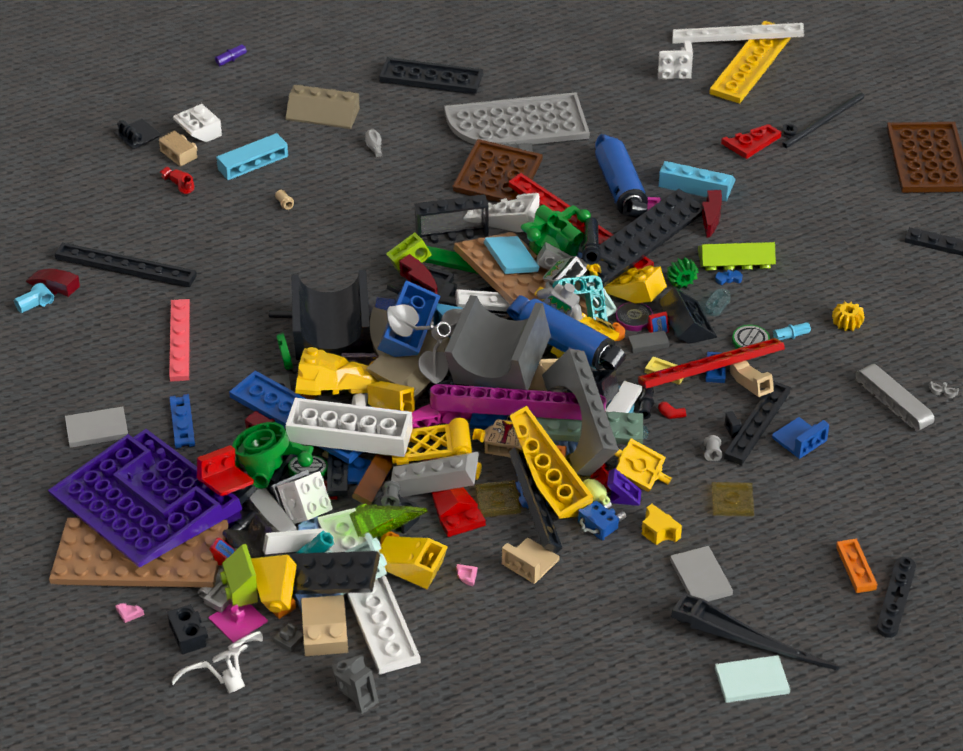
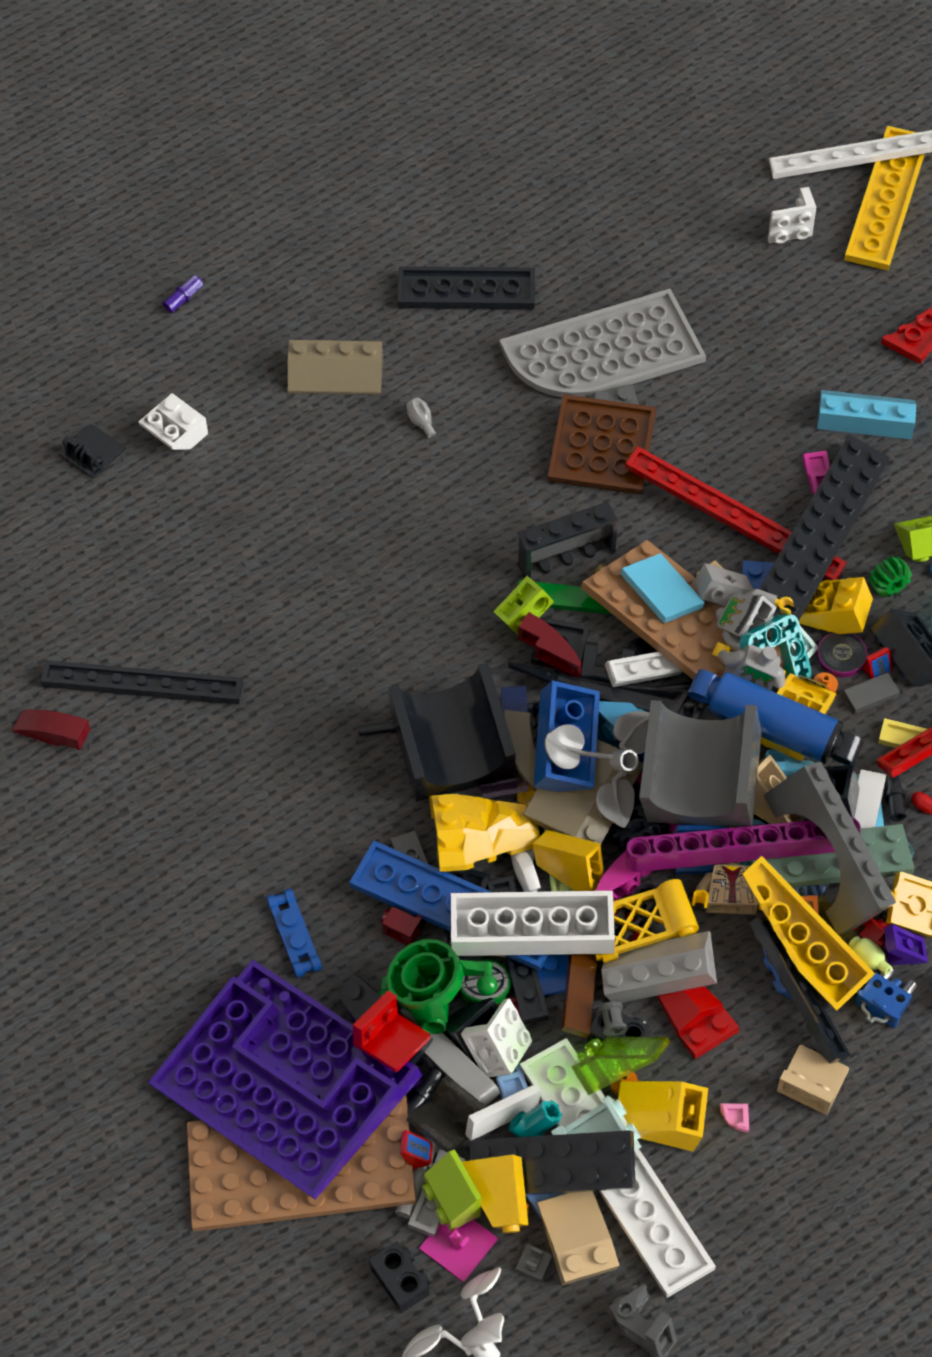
camera: 10 degrees left, 15 degrees up
(38, 296) = (38, 757): medium azure piece -> none
(96, 426) = (181, 962): light grey tile -> none
(129, 612) = (312, 1259): bright pink tile -> none
(178, 148) = (157, 470): tan brick -> none
(180, 178) = (179, 522): red arm -> none
(180, 340) = (251, 796): coral plate -> none
(252, 156) = (262, 468): medium azure brick -> none
(284, 351) = (403, 799): green tile -> none
(286, 201) = (329, 537): tan pin -> none
(498, 498) = (744, 986): clear yellow tile -> none
(513, 213) = (644, 510): white wedge -> none
(555, 229) = (709, 539): green piece -> none
(591, 249) = (775, 574): black cylinder -> none
(621, 176) = (769, 427): blue piece -> none
(711, 211) = (900, 463): dark red slope -> none

